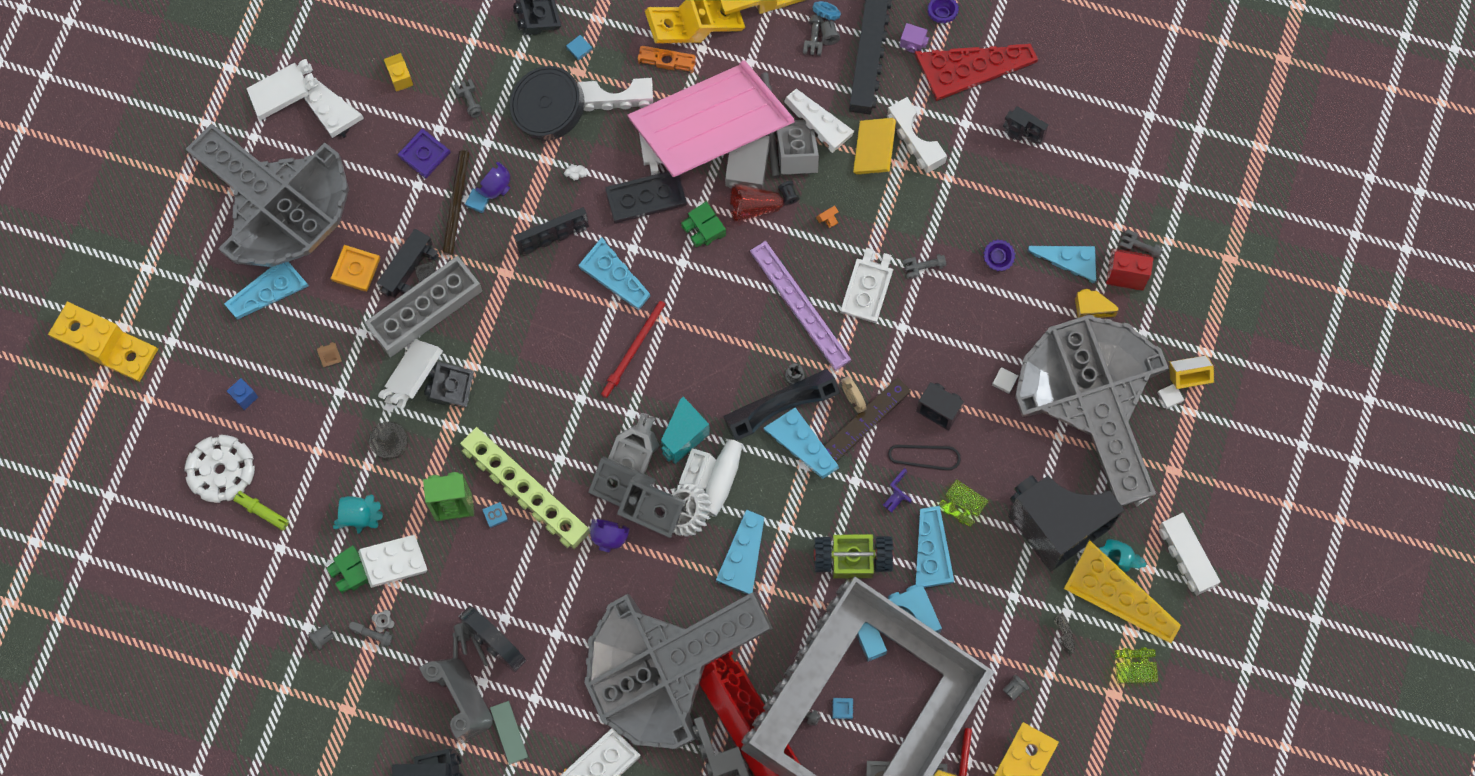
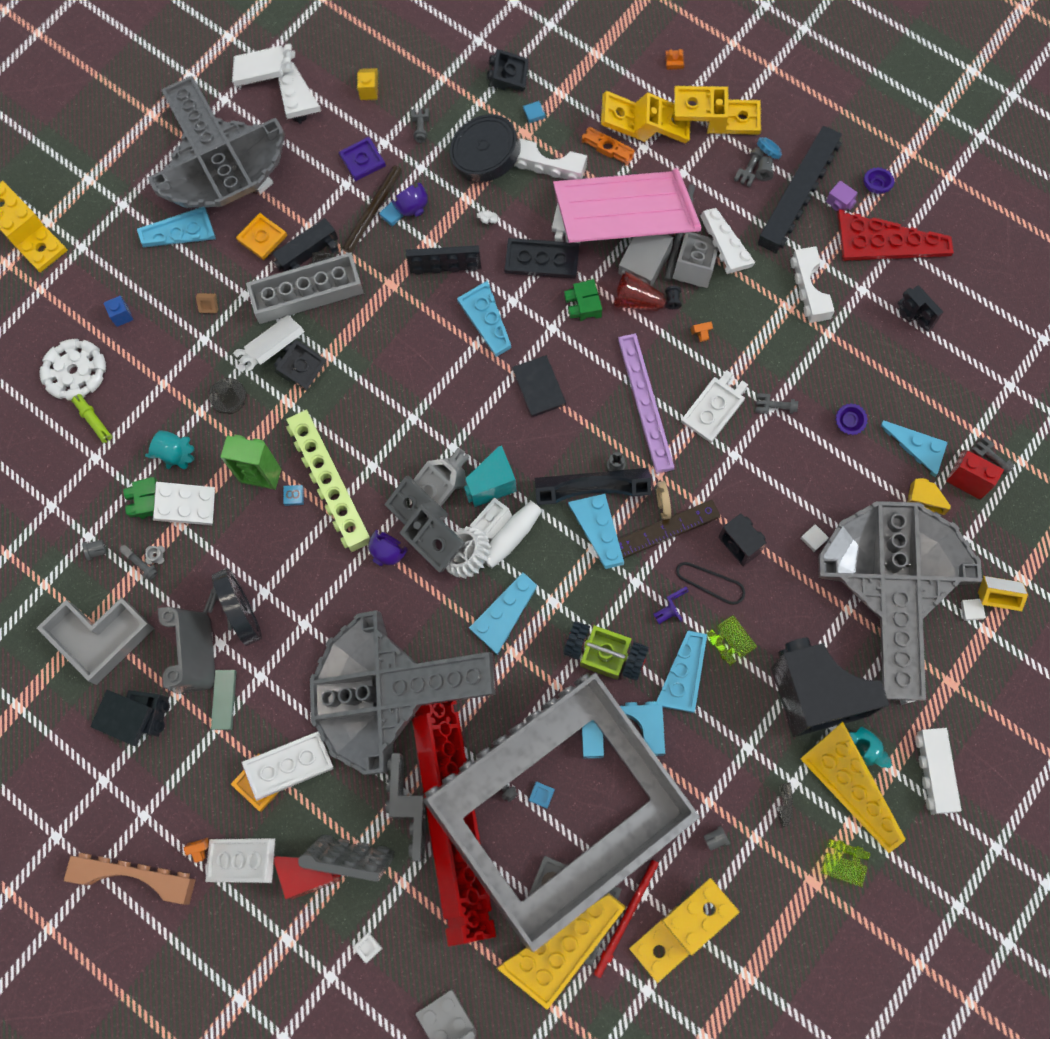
camera: 25 degrees right, 0 degrees up
(365, 728) = (97, 646): none -> light grey piece
(614, 379) = (448, 411): red bar -> none
(691, 324) = (539, 386): none -> black tile
(874, 146) = (769, 281): yellow tile -> none

